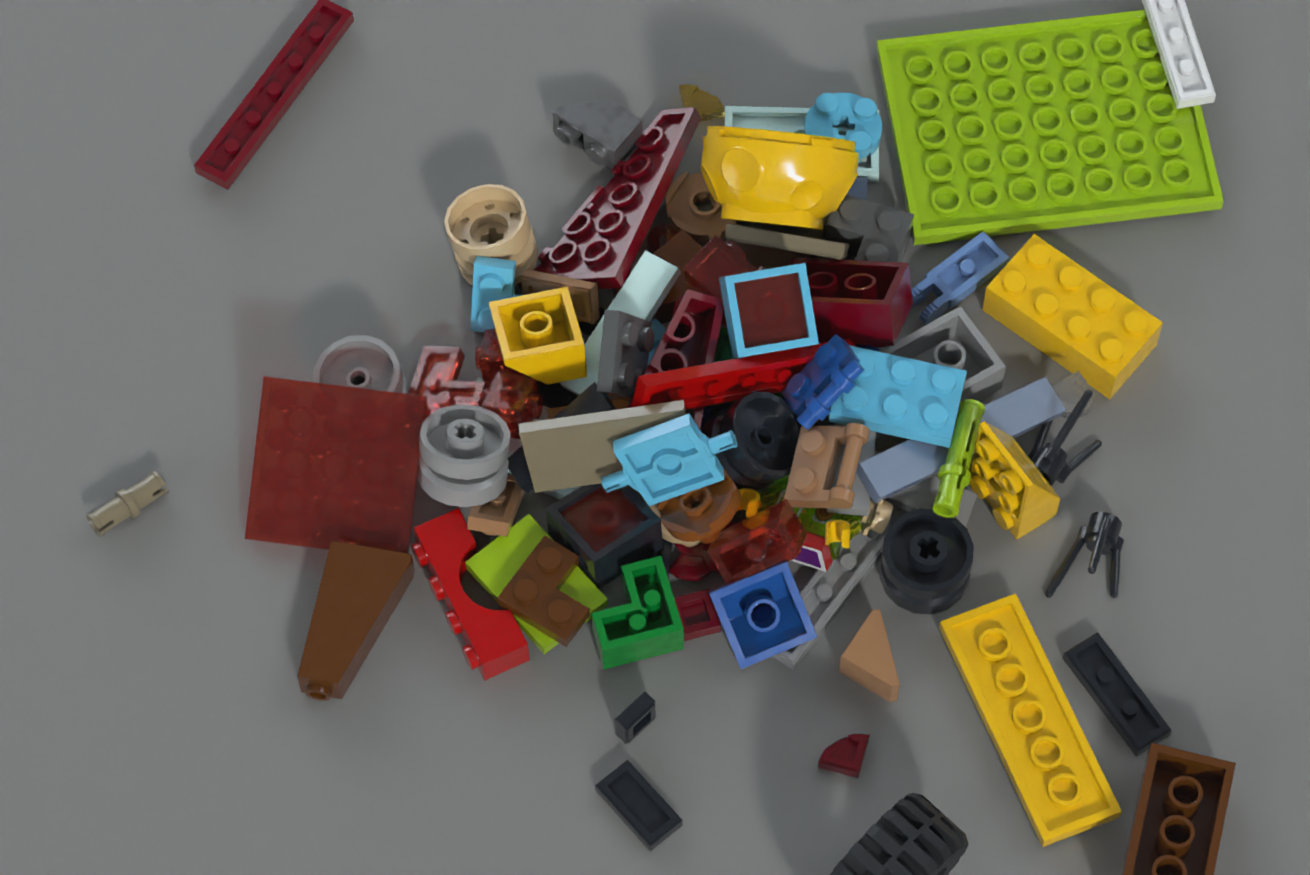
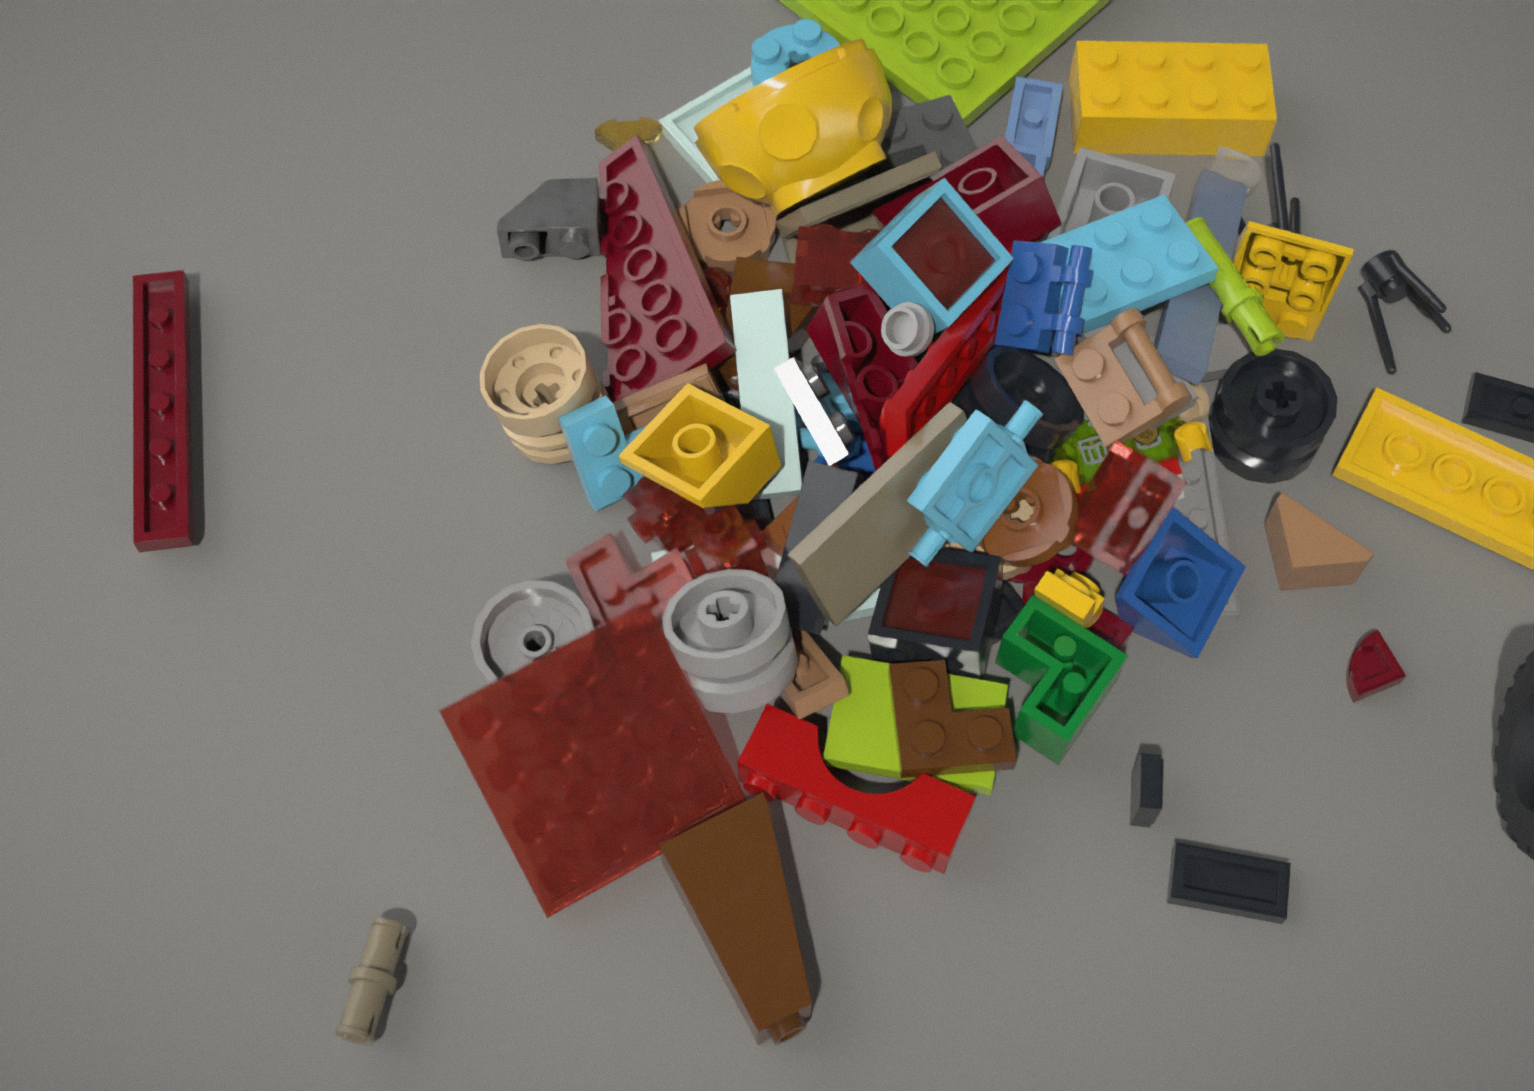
camera: 40 degrees left, 0 degrees up
(681, 574) = (1072, 596): none -> yellow slope
(714, 342) = (908, 329): none -> light grey plate

